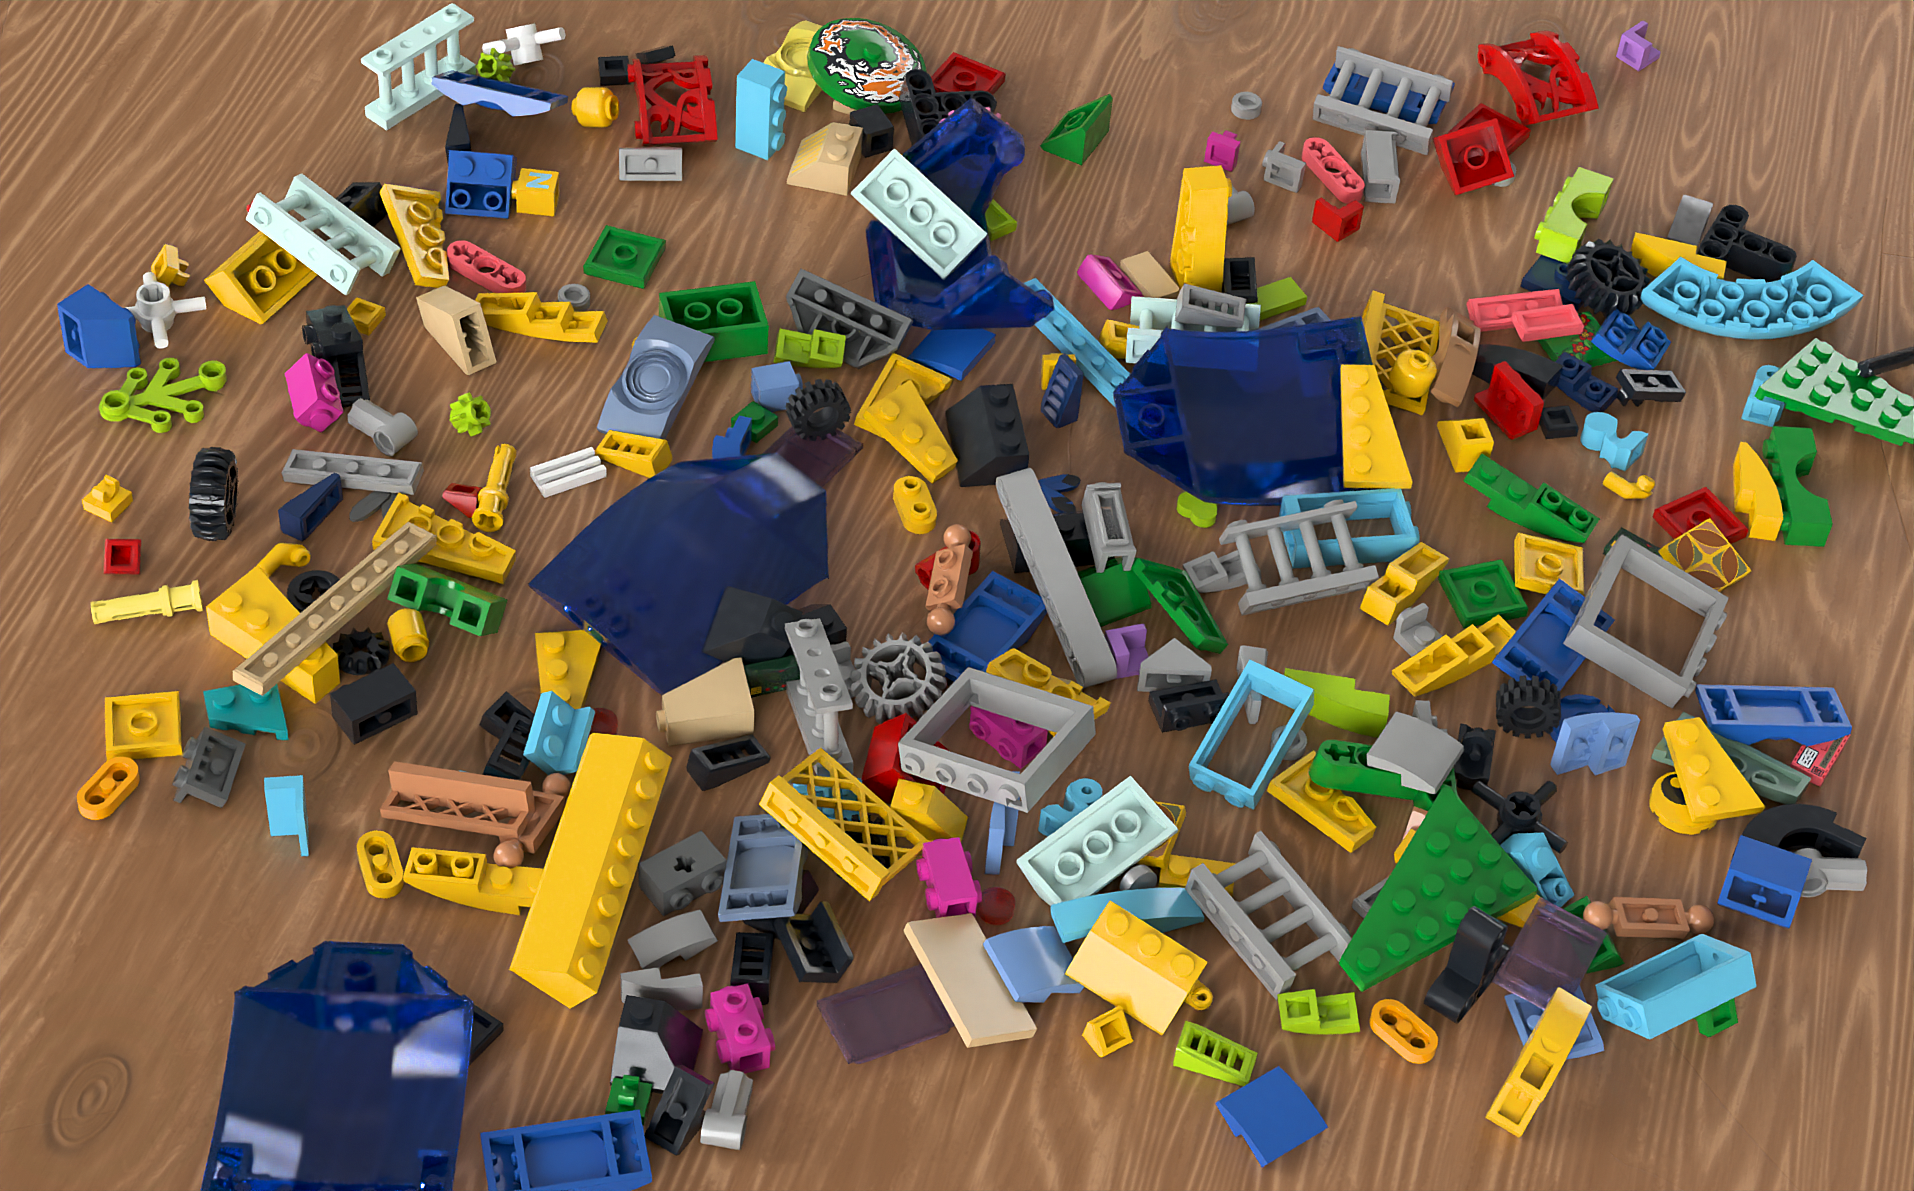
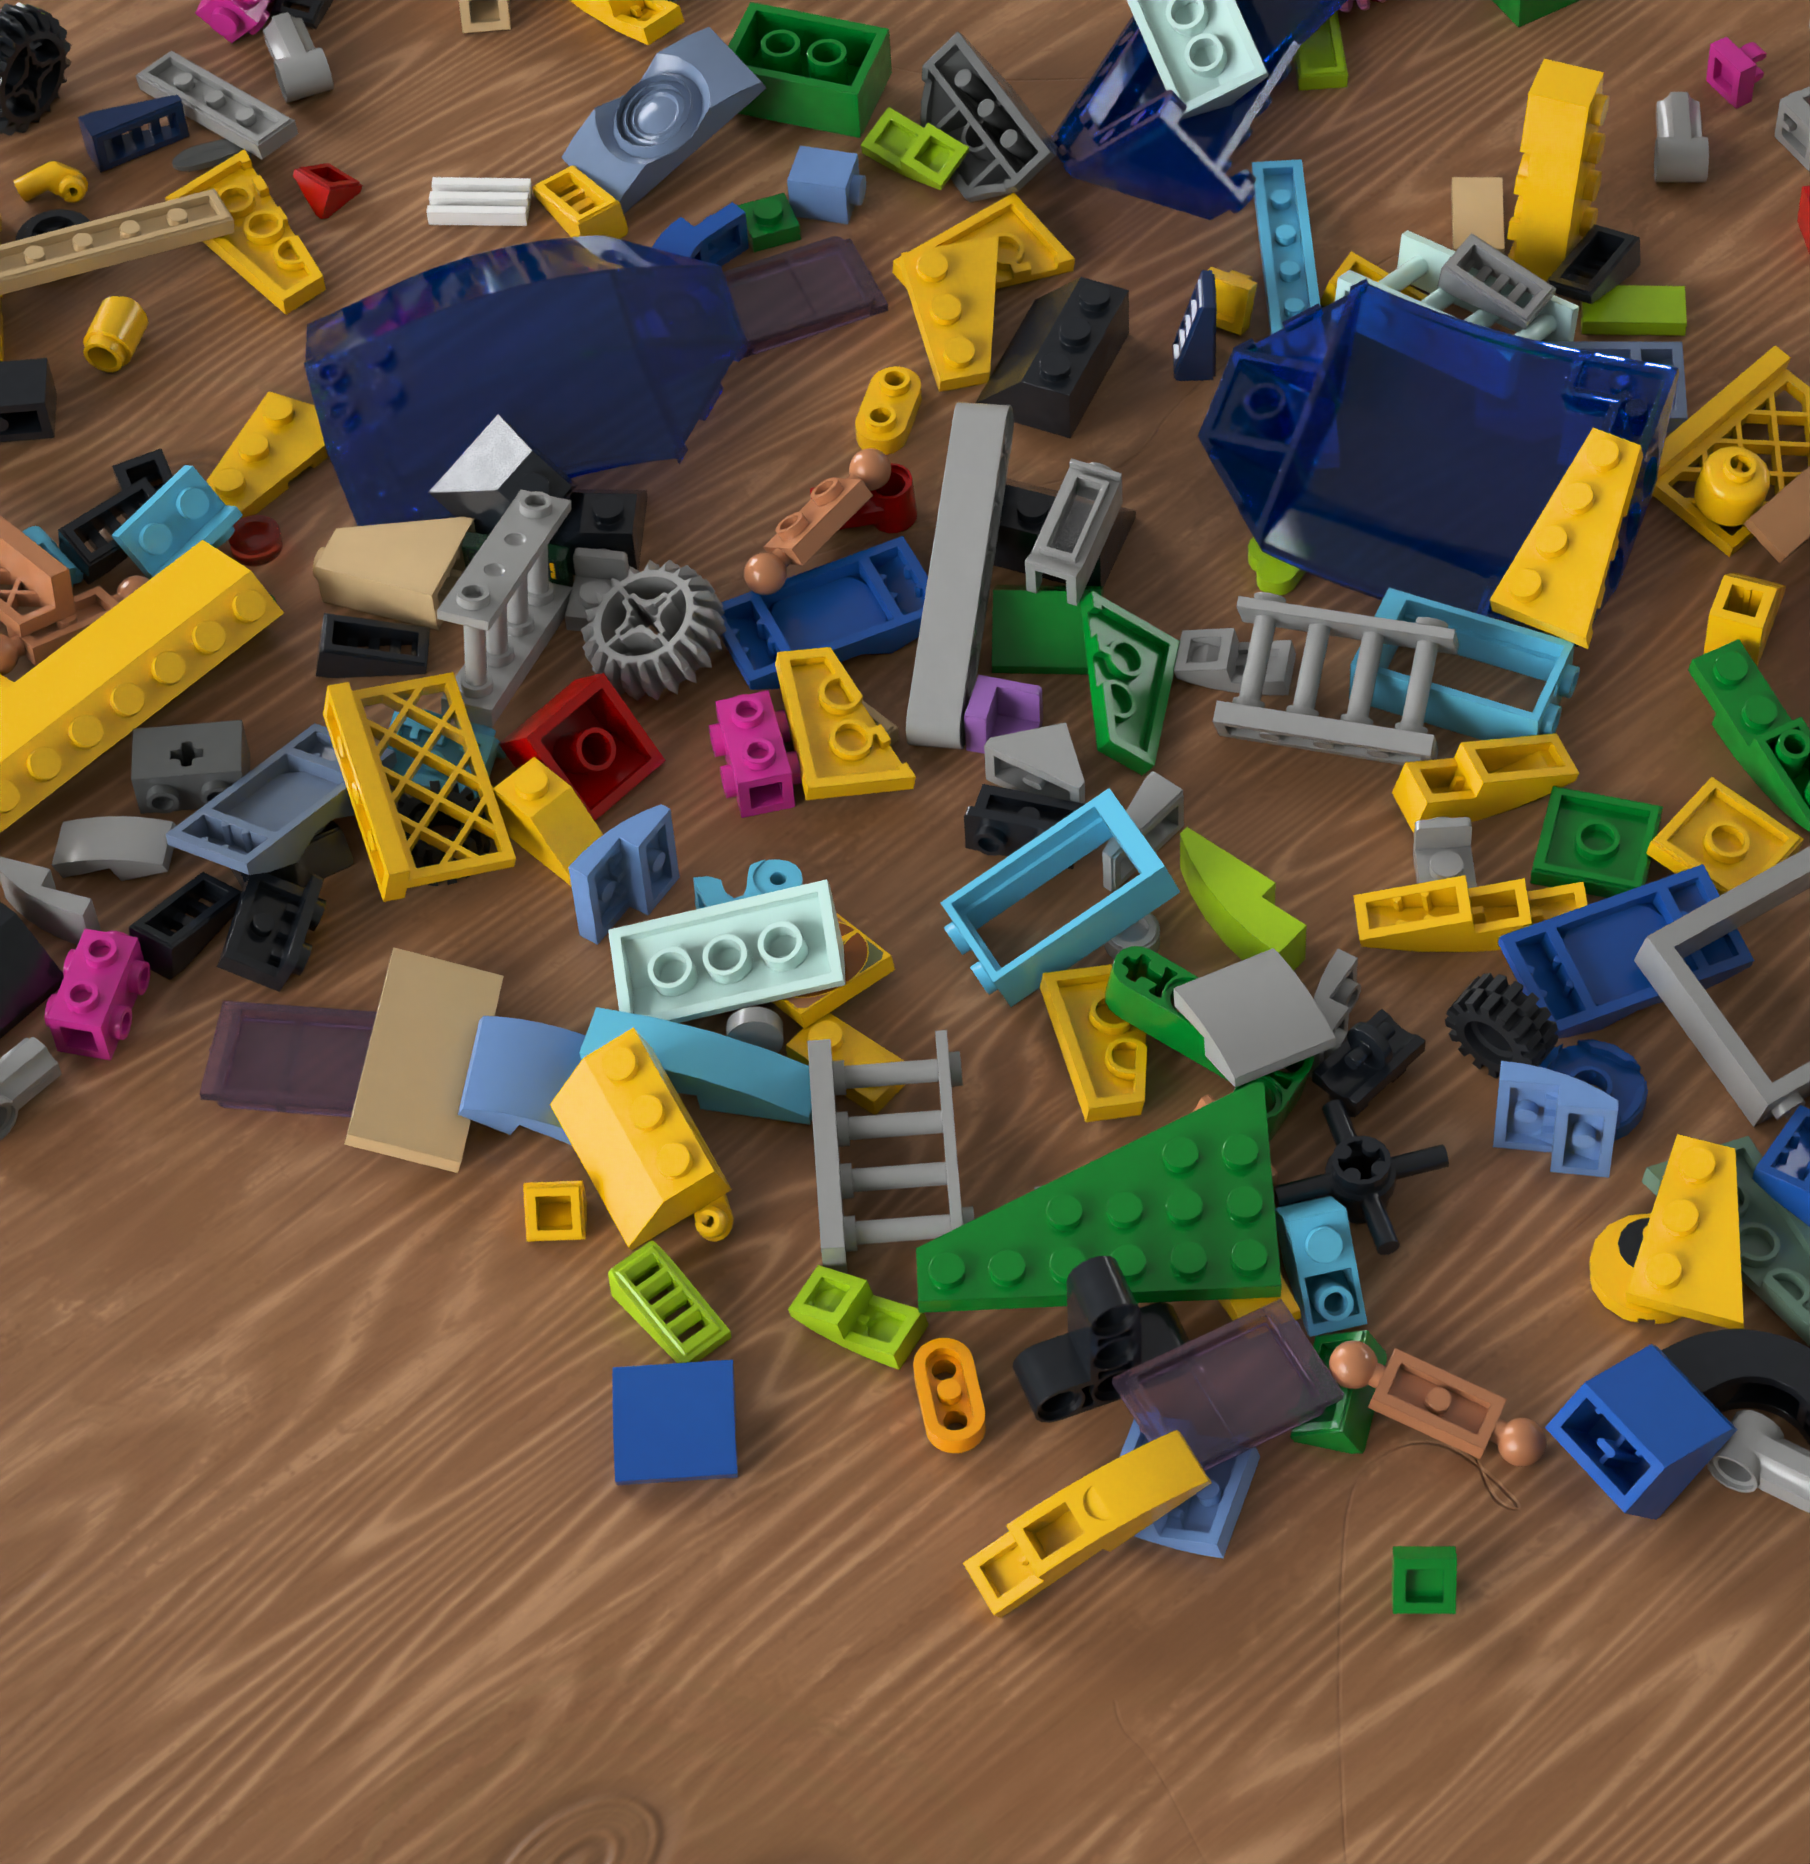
camera: 40 degrees right, 5 degrees up
(361, 662) = (31, 341): black gear -> none
(435, 592) = (206, 324): green arch -> none
(470, 414) = (420, 86): lime gear -> none
(493, 497) = (356, 199): yellow pin -> none
(812, 398) = (838, 212): black tyre -> none
(948, 878) = (504, 917): dark pink brick -> none
(953, 350) = (1105, 223): blue slope -> none
(996, 906) = (552, 981): clear red tile -> none
(1054, 486) = (1114, 455): blue piece -> none
(1068, 718) = (693, 812): light grey window -> none
(1107, 281) = (1416, 200): dark pink slope -> none
(1675, 986) = (1375, 1514): medium azure window -> none

